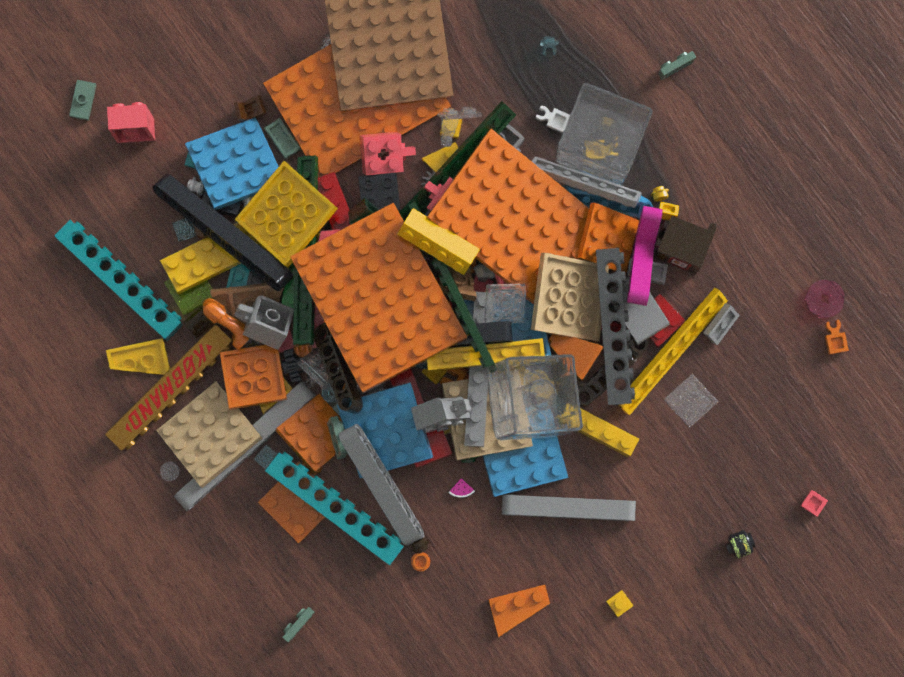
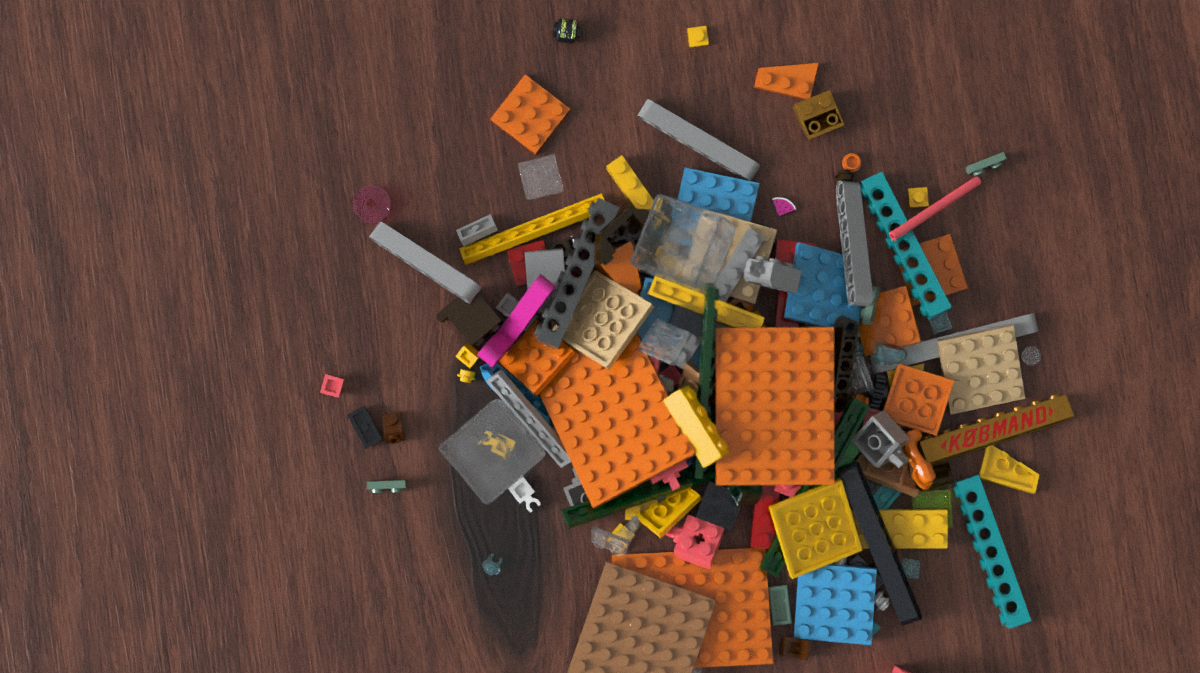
camera: 150 degrees left, 5 degrees up
(299, 402) = (888, 354): none -> clear light blue rock
(324, 556) = (935, 208): none -> coral piece
(344, 561) = (917, 197): none -> yellow plate
(421, 165) = (669, 512): none -> yellow wing
(473, 586) = (818, 115): none -> pearl gold slope
(602, 355) = (603, 248): none -> dark brown slope
(698, 116) = (393, 427): none -> reddish brown bracket
(722, 104) = (365, 427): none -> black plate
(731, 453) = (530, 114): none -> orange plate
(751, 267) = (425, 262): none -> light grey beam
(771, 123) = (332, 386): none -> coral tile
(814, 503) = (482, 32): coral plate -> none
(836, 341) = (383, 162): orange plate -> none

